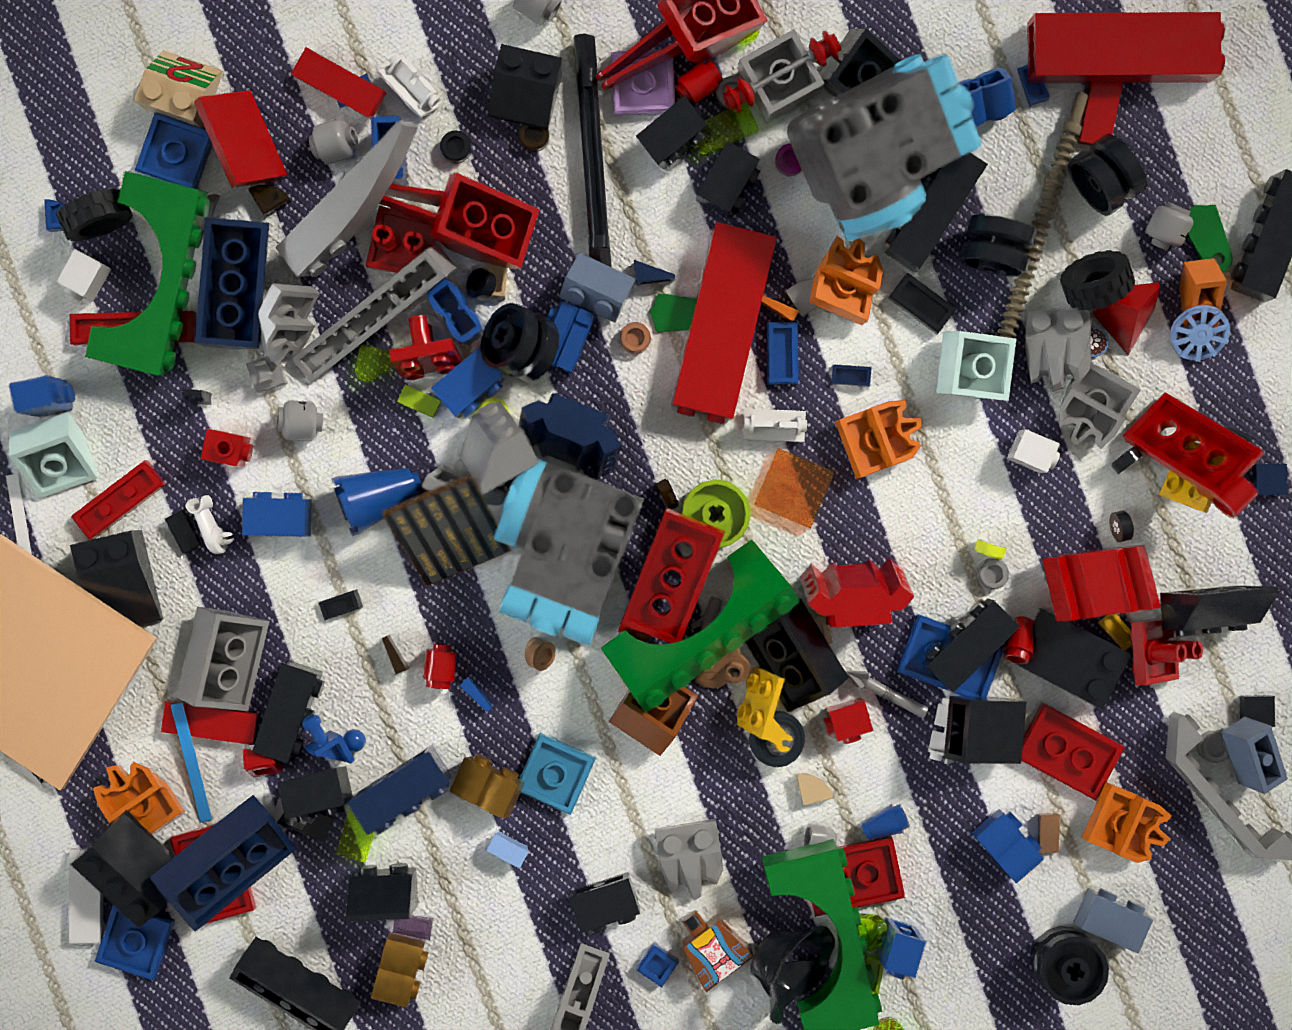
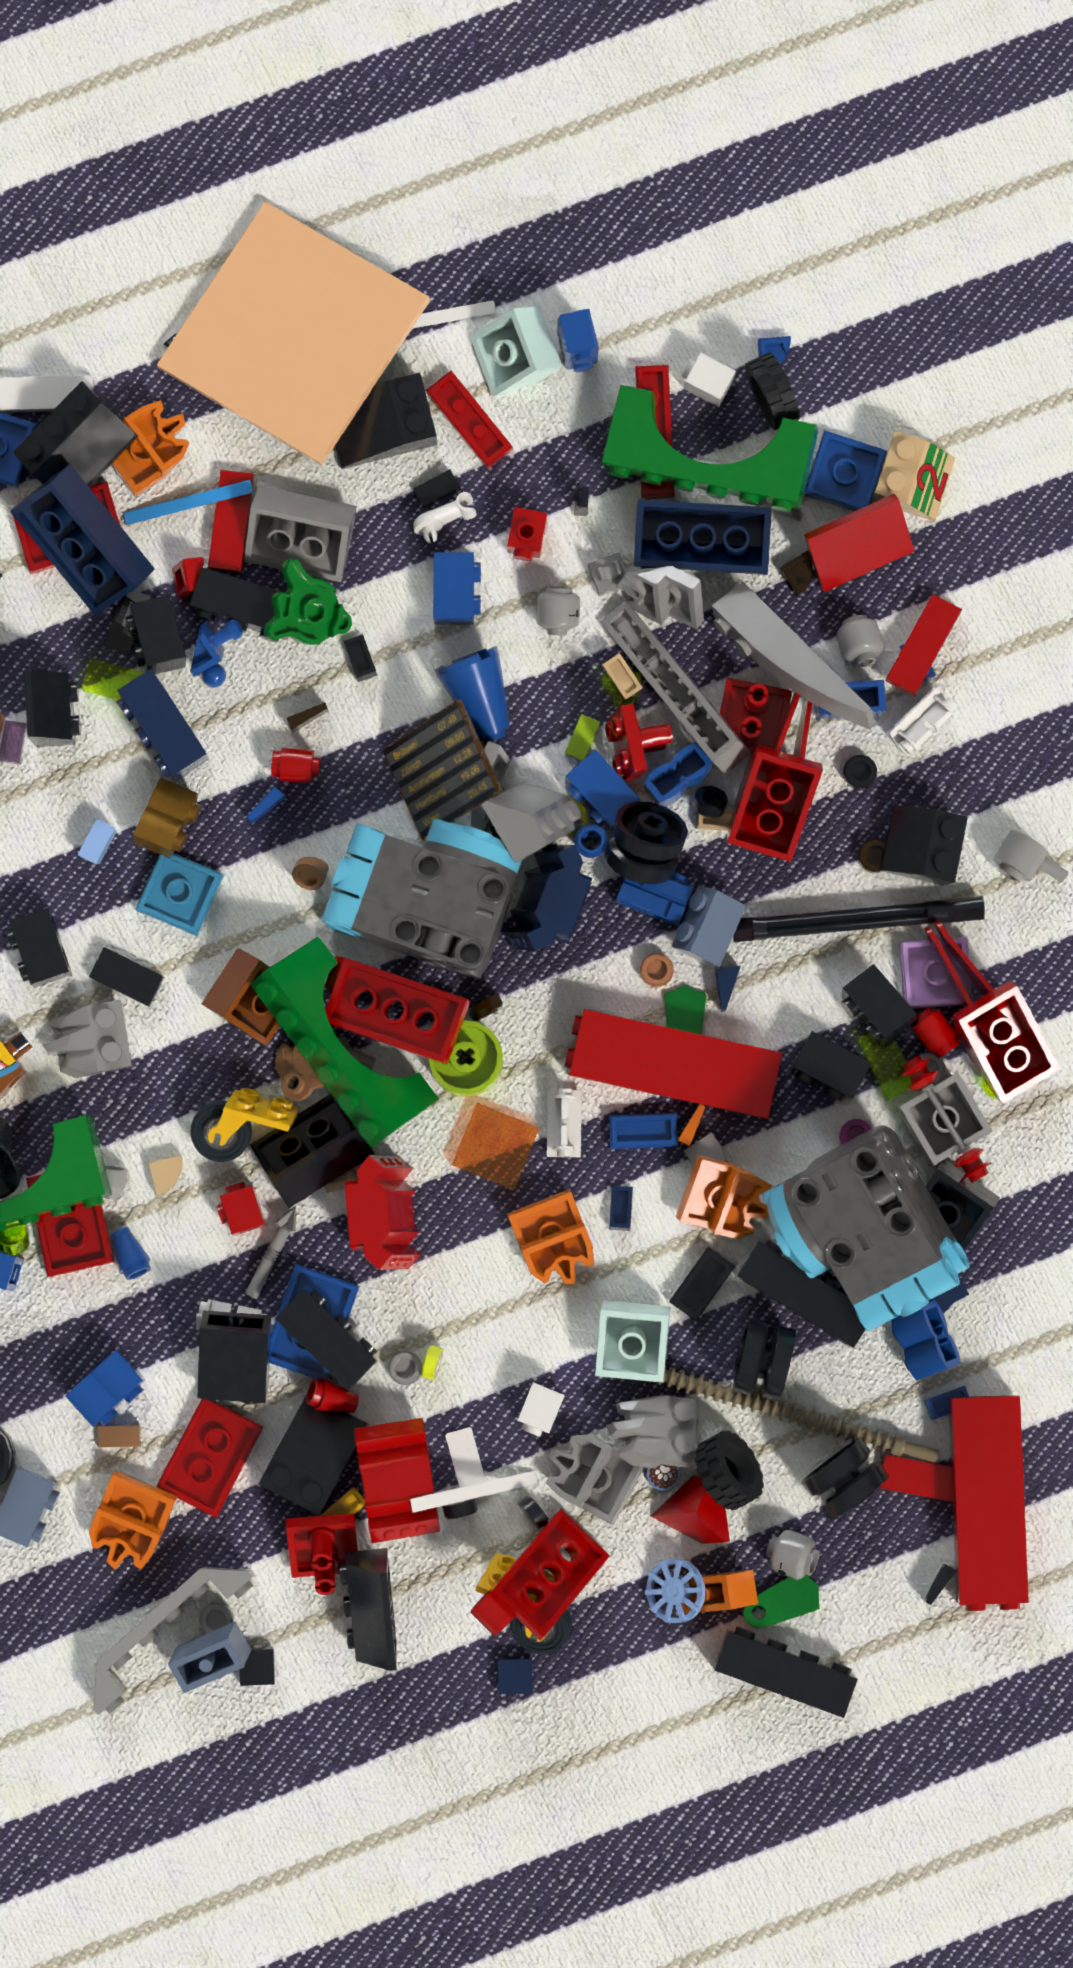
camera: 90 degrees right, 5 degrees down
(294, 654) = (307, 609): none -> green tile
(362, 363) = (622, 676): none -> tan piece
(508, 393) = (591, 832): none -> blue cone
(632, 823) = (126, 977): none -> black tile
(1077, 519) = (465, 1457): none -> white sticker
(1109, 514) = (473, 1491): none -> white sticker
(1195, 95) = (940, 1581): none -> black piece

